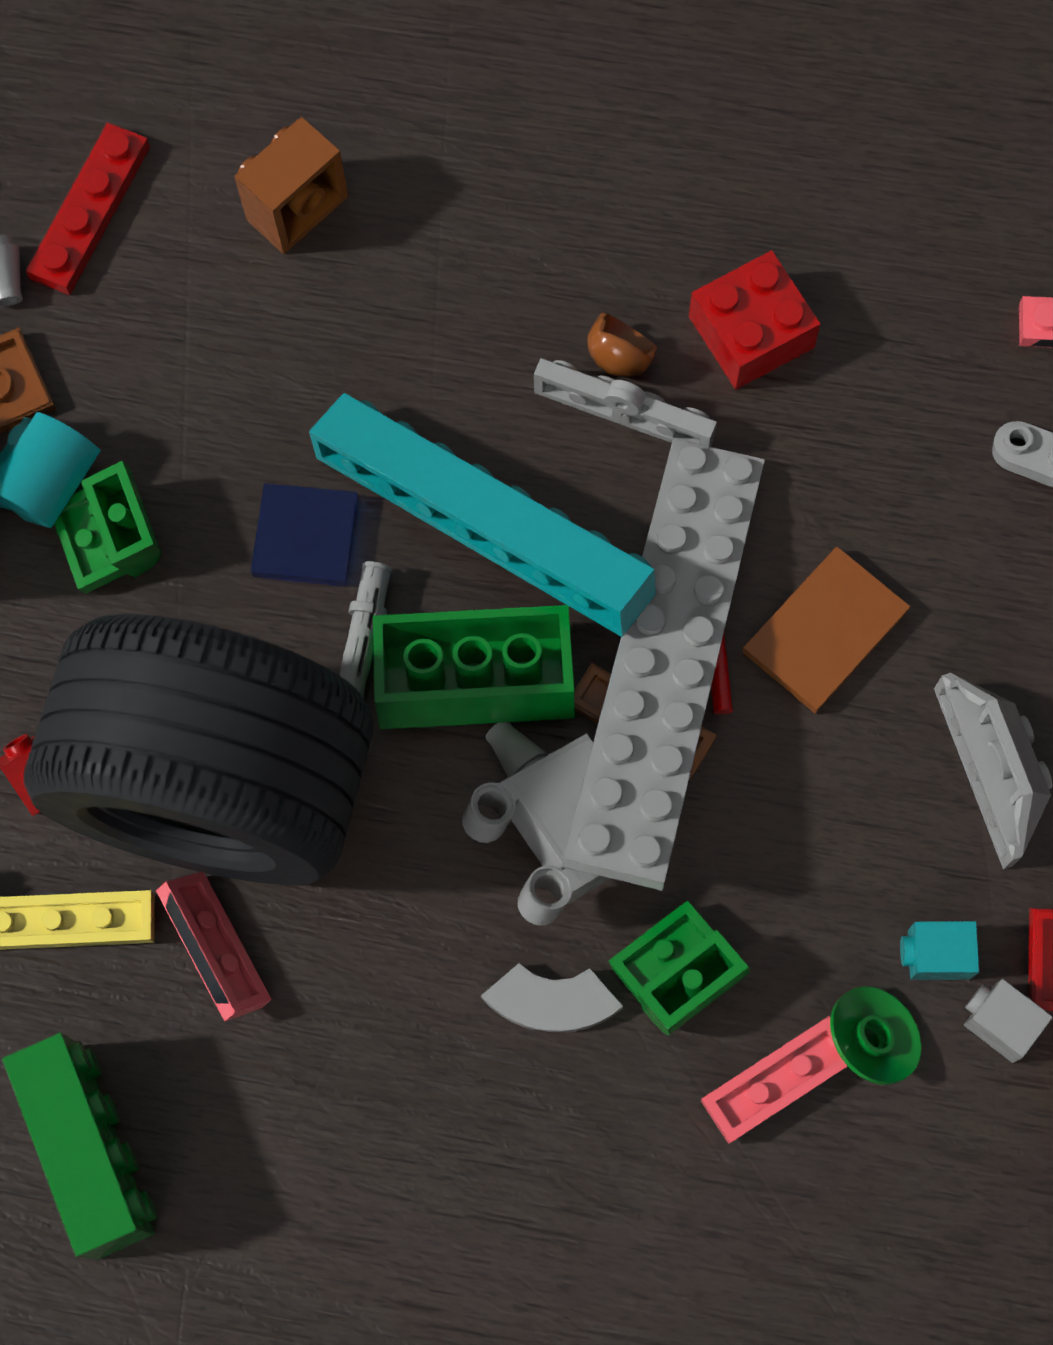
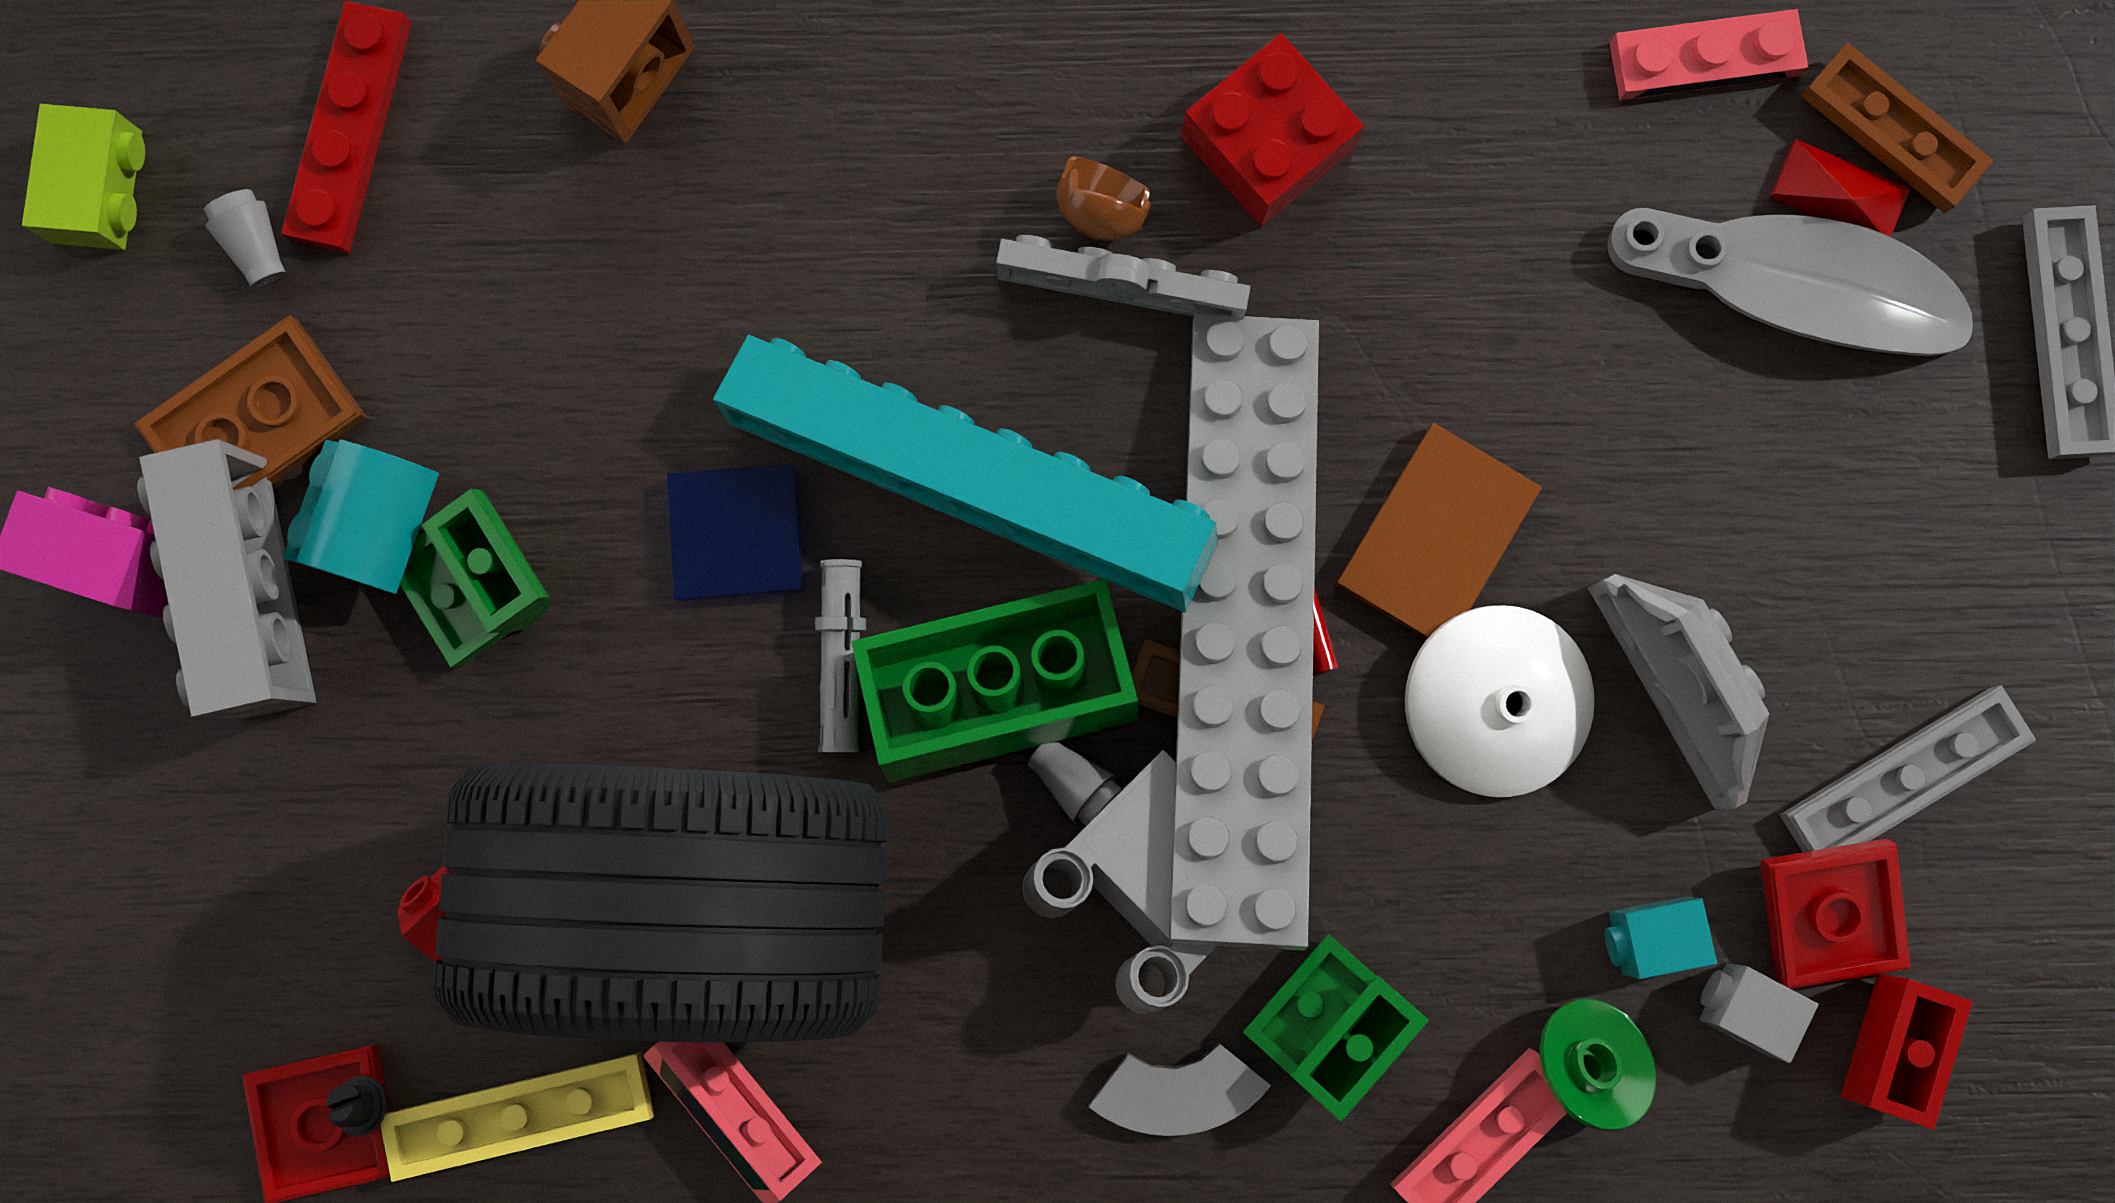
camera: 15 degrees left, 10 degrees up
(823, 774) = (1461, 693): none -> white dish

